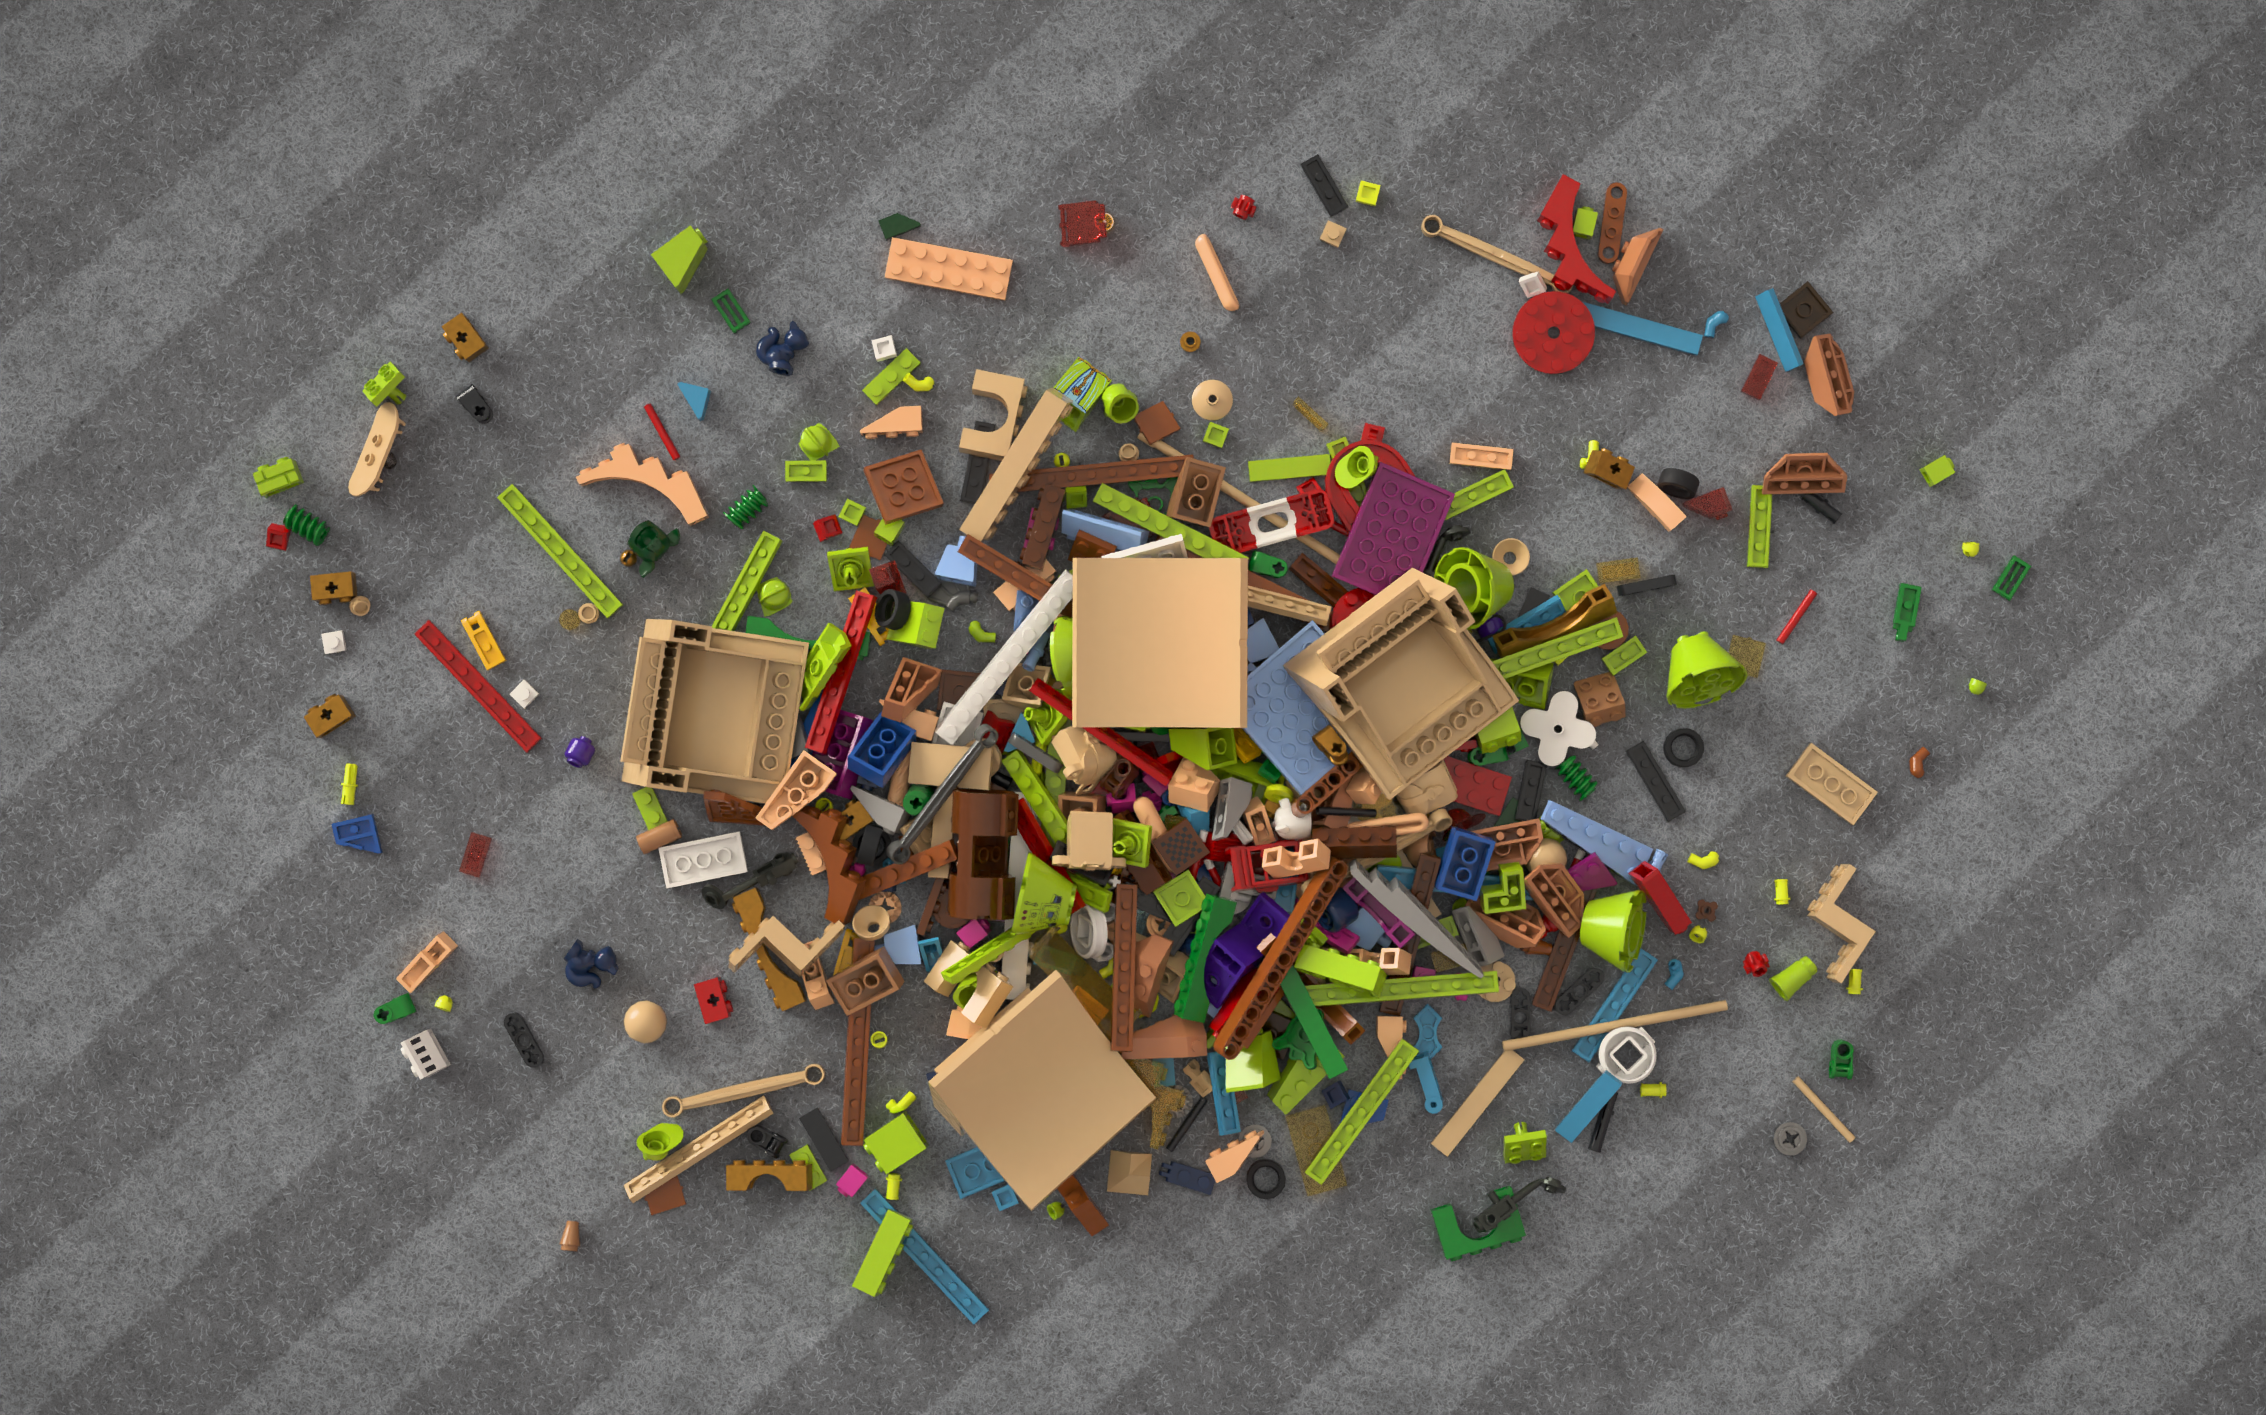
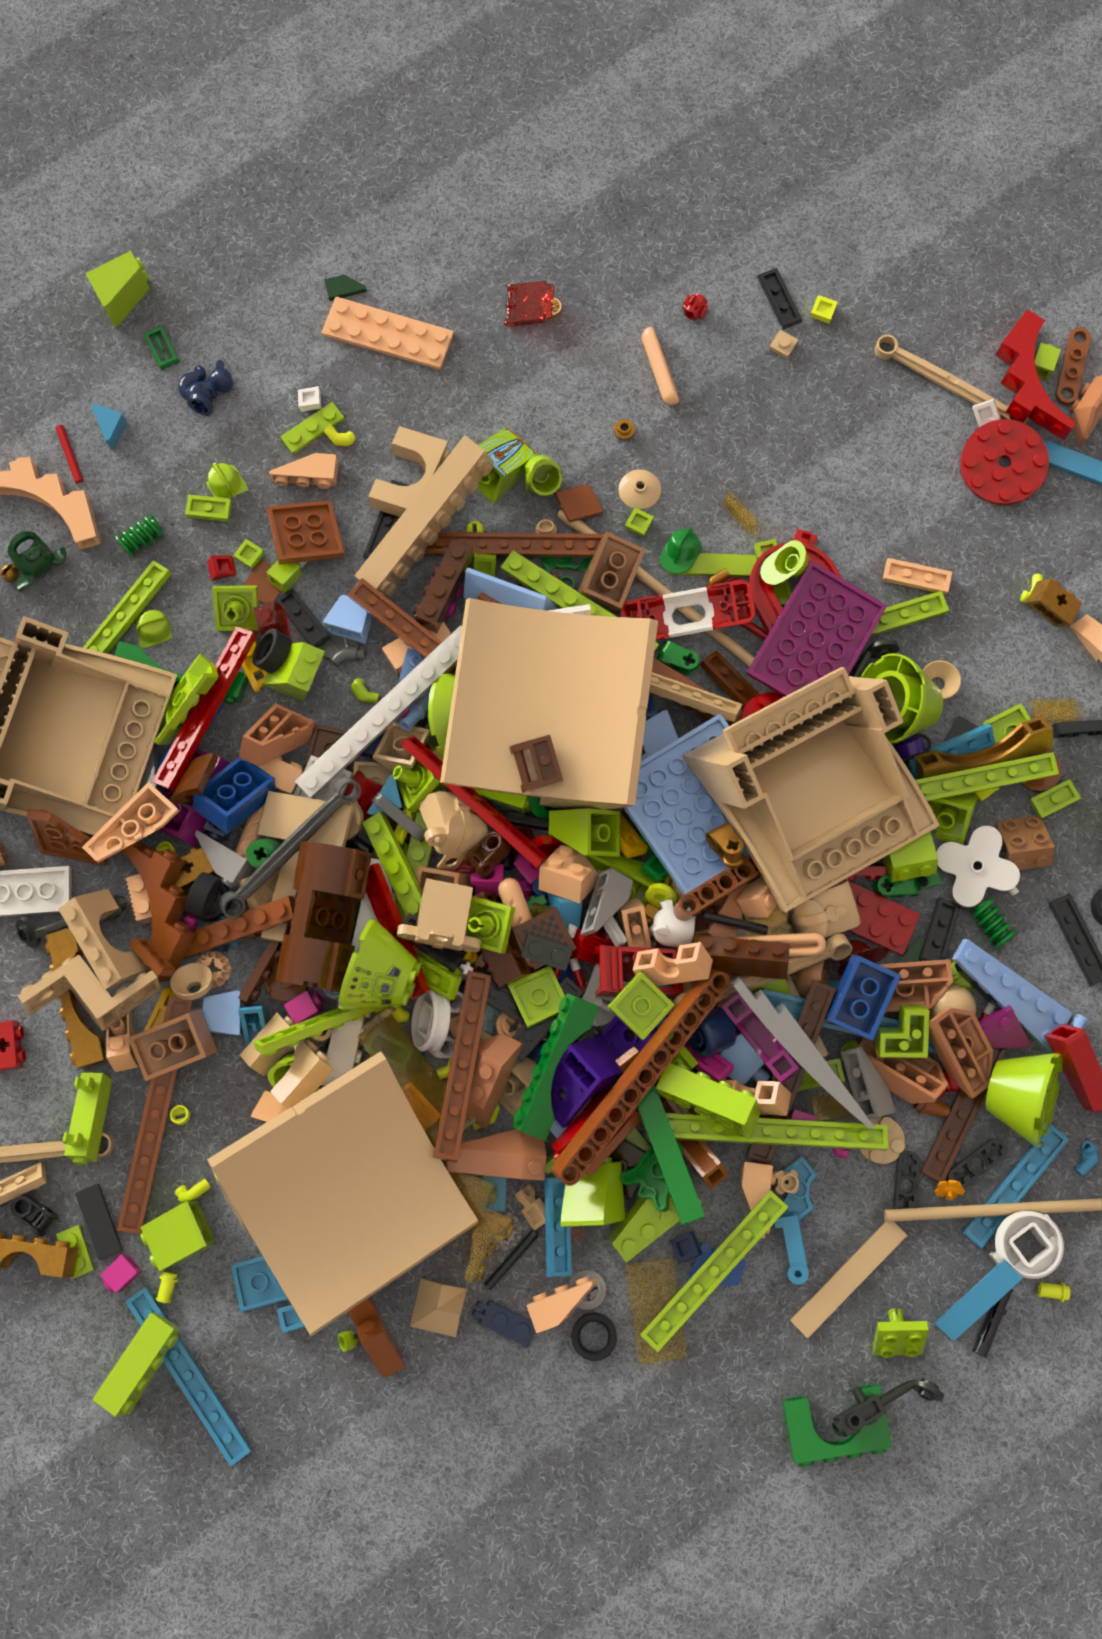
camera: 10 degrees right, 10 degrees down
(772, 885) = (83, 918): none -> tan arch
(800, 1053) = (87, 1118): none -> lime brick
(834, 907) = (152, 957): none -> dark orange plate
(844, 742) = (194, 778): none -> reddish brown slope
(1162, 698) = (544, 763): none -> reddish brown plate
(1184, 860) = (546, 952): none -> pearl dark grey plate
(1258, 461) = (680, 551): none -> green piece
(1272, 897) = (641, 1005): none -> lime plate
(1294, 484) = (719, 577): none -> pearl gold arm
(1420, 1032) = (793, 1182): none -> tan plate
(1557, 1015) = (949, 1189): none -> light orange plant

